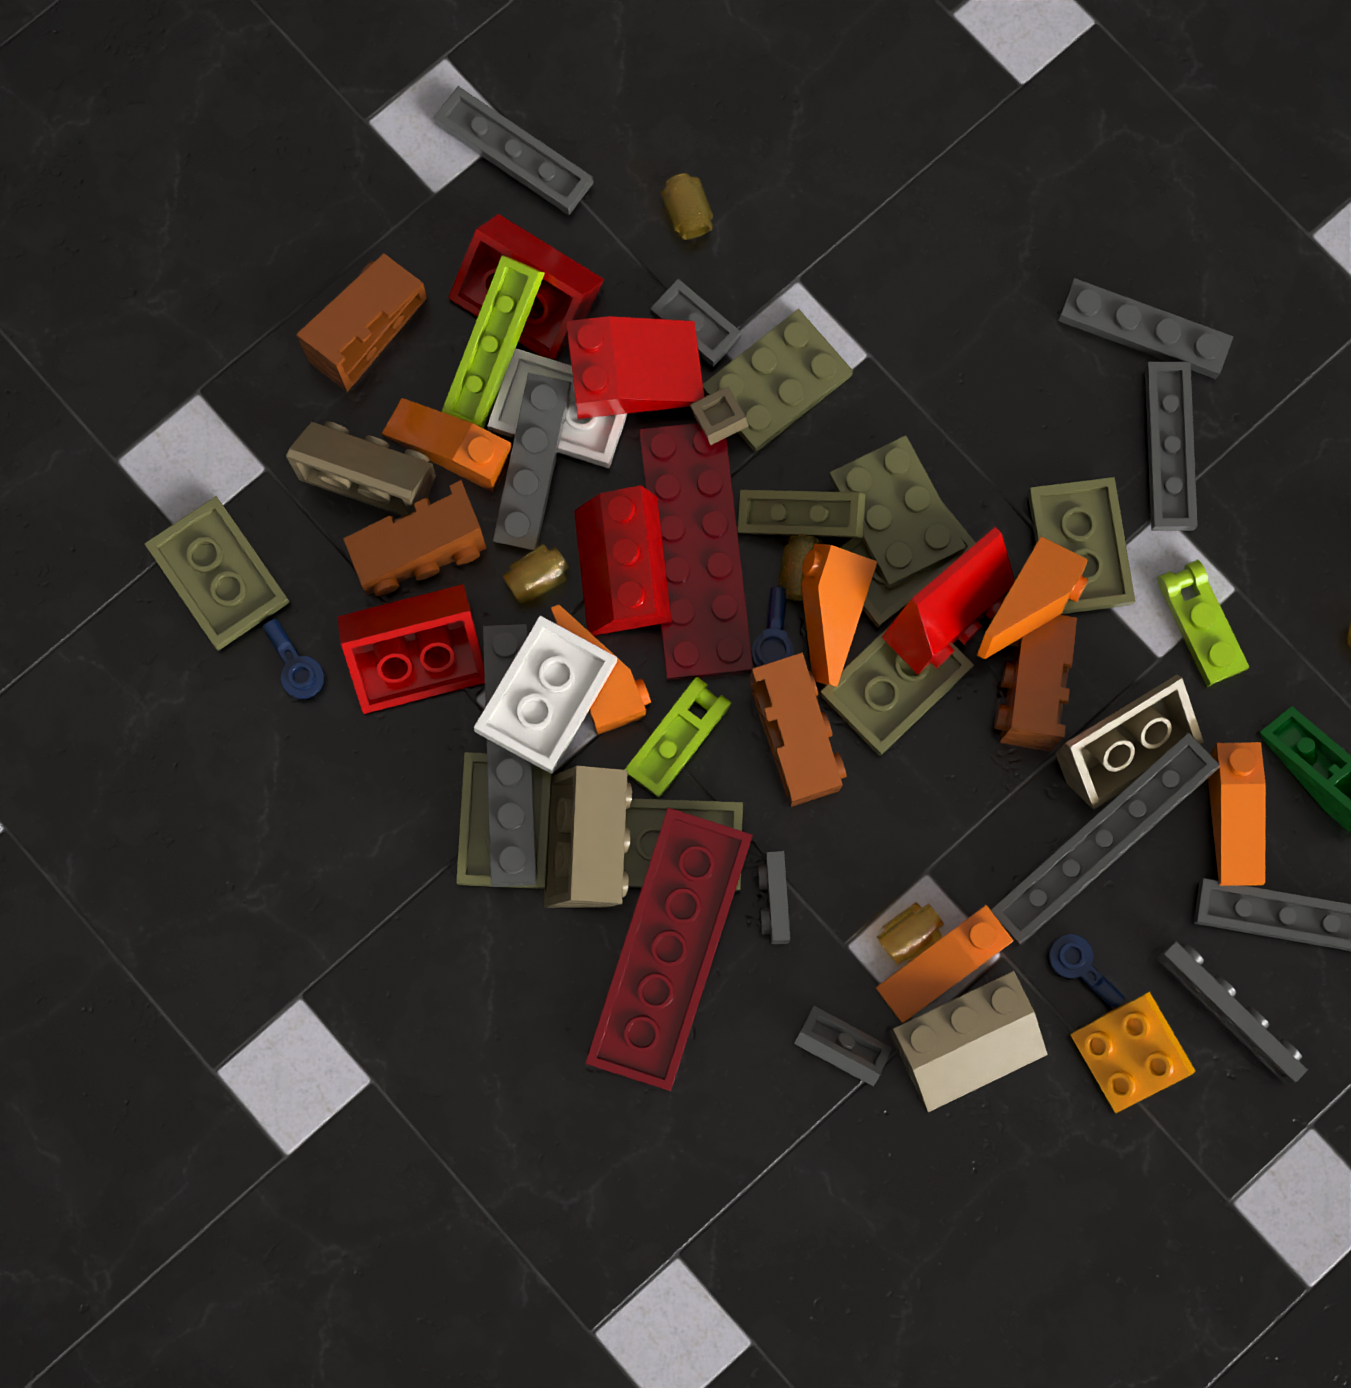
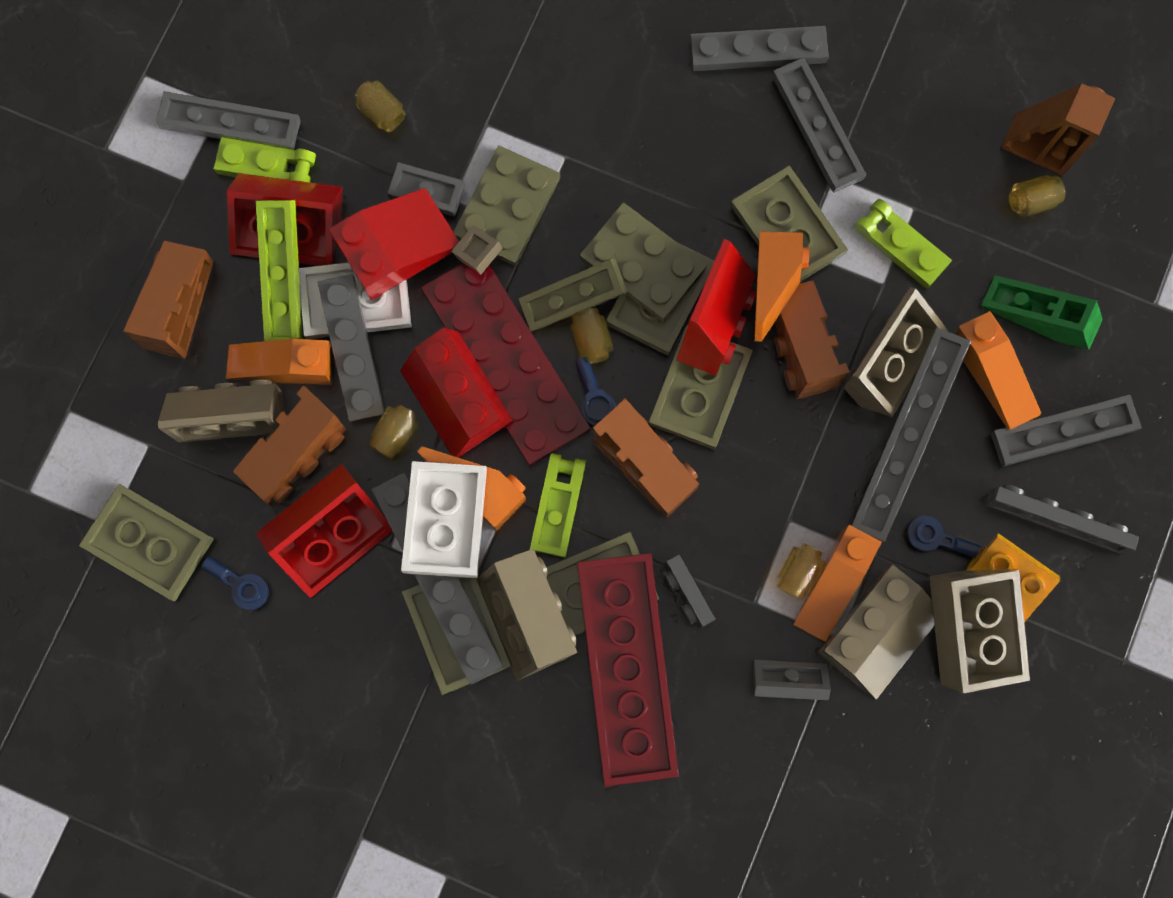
camera: 25 degrees left, 0 degrees up
(530, 210) = (262, 160): none -> lime plate
(833, 600) = (628, 349): orange slope -> none
(1077, 1086) = (979, 629): none -> dark tan slope

